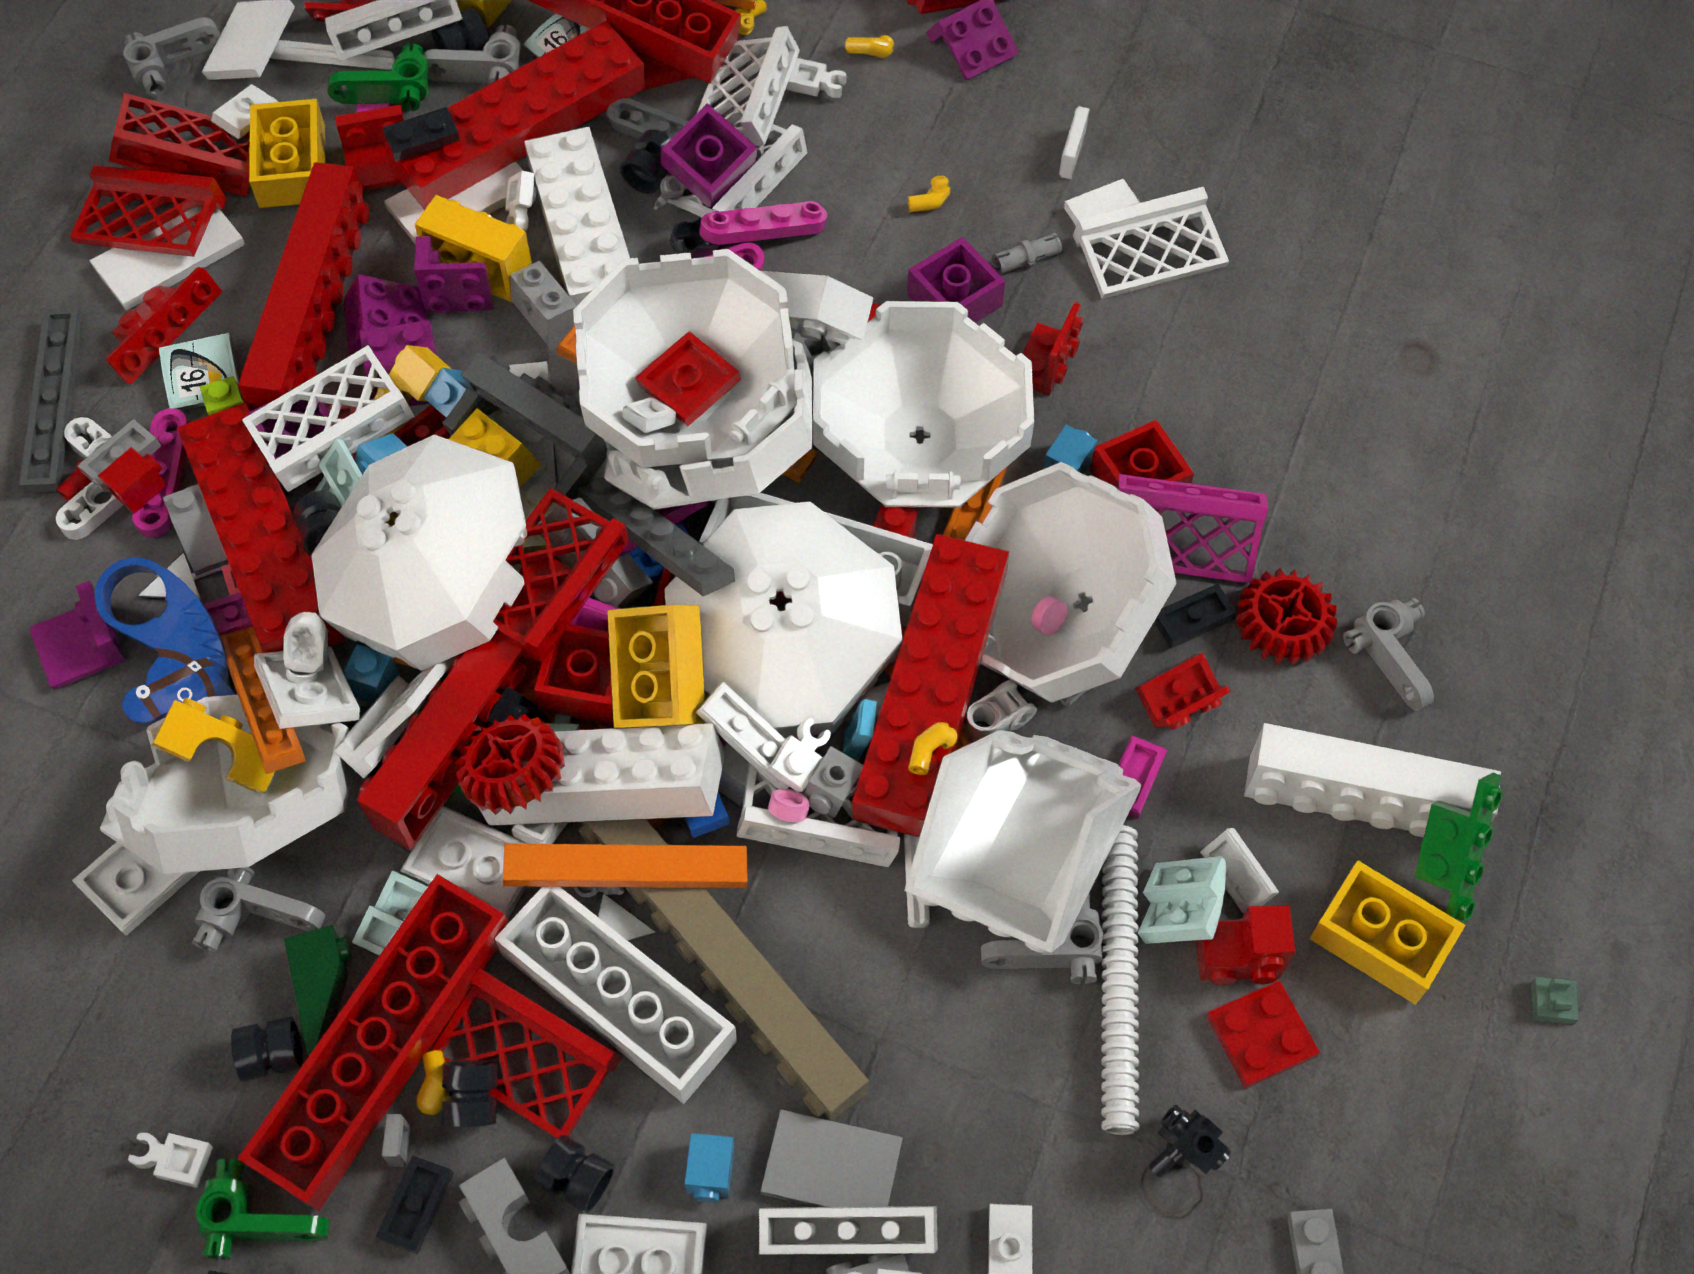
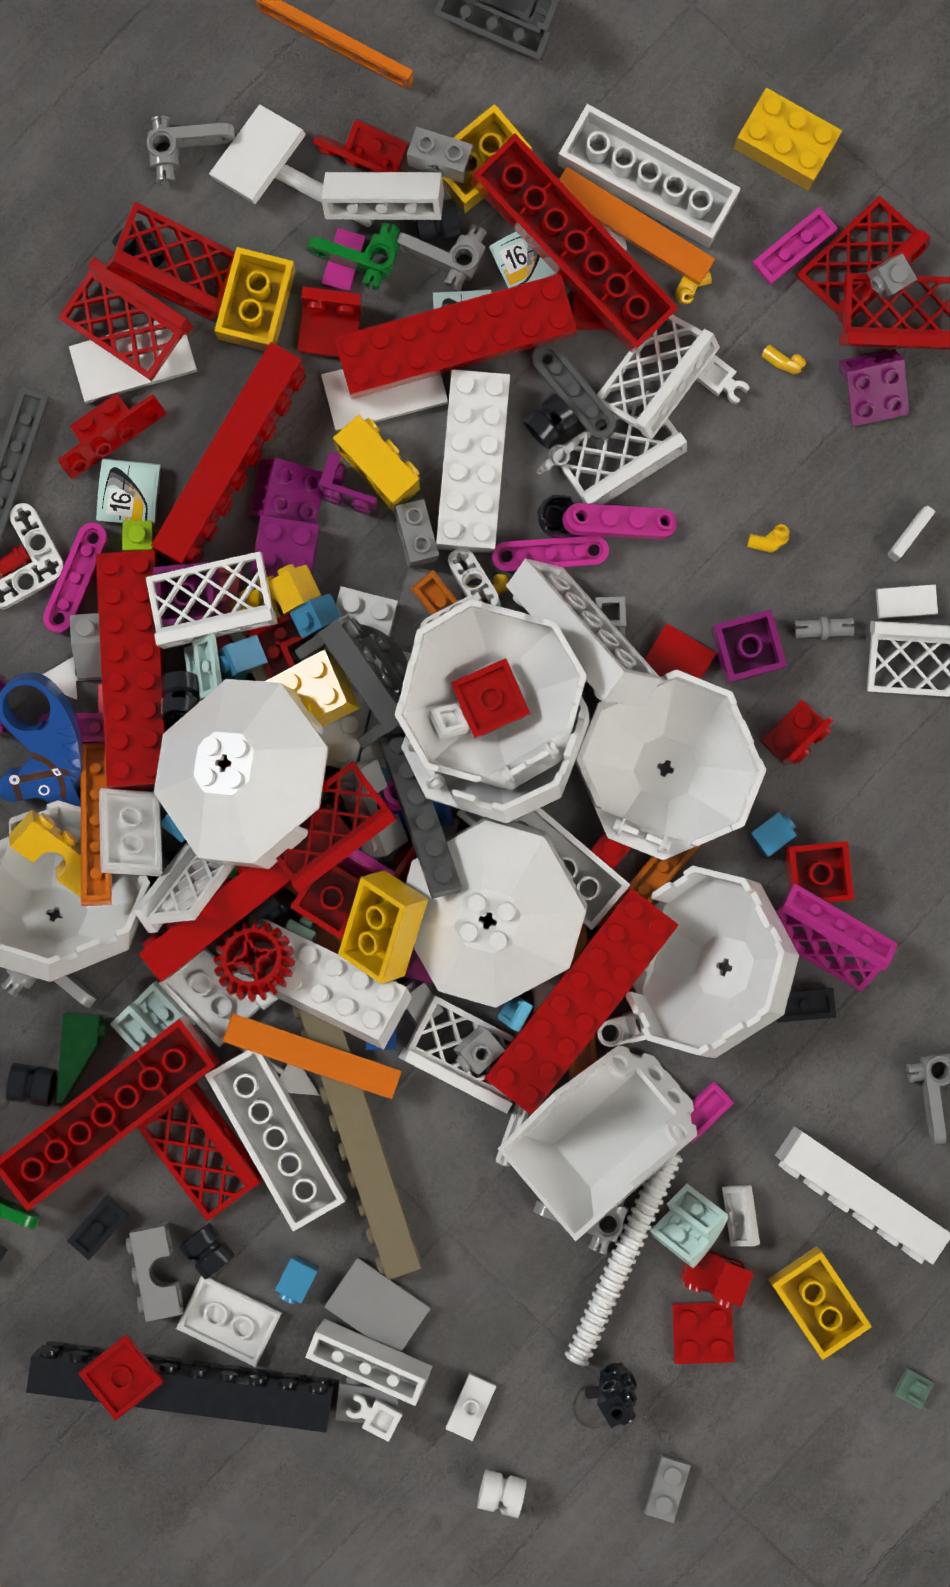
camera: 20 degrees right, 25 degrees up
(129, 436) = (46, 559): light grey plate -> none
(133, 479) = (51, 588): red brick -> none
(235, 114) = (236, 233): white plate -> none
(306, 643) = (138, 802): white rock -> none
(396, 1140) = (98, 1180): light grey tile -> none
(421, 134) = (365, 346): black plate -> none
(431, 1092) = (136, 1152): yellow arm -> none
(469, 1093) = (155, 1172): black wheel -> none
(520, 196) = (430, 419): white plate -> none
(708, 155) = (595, 451): magenta brick -> none
(743, 730) = (433, 1000): white tile -> none
(789, 805) = (440, 1059): bright pink tile -> none
(796, 758) = (458, 1028): white plate -> none
(937, 735) = (553, 1062): yellow arm -> none
(1049, 615) = (692, 972): bright pink tile -> none
(1180, 692) = (765, 1065): red bracket -> none
(1302, 633) = (861, 1042): red gear -> none
(1455, 846) = (891, 1273): green bracket -> none

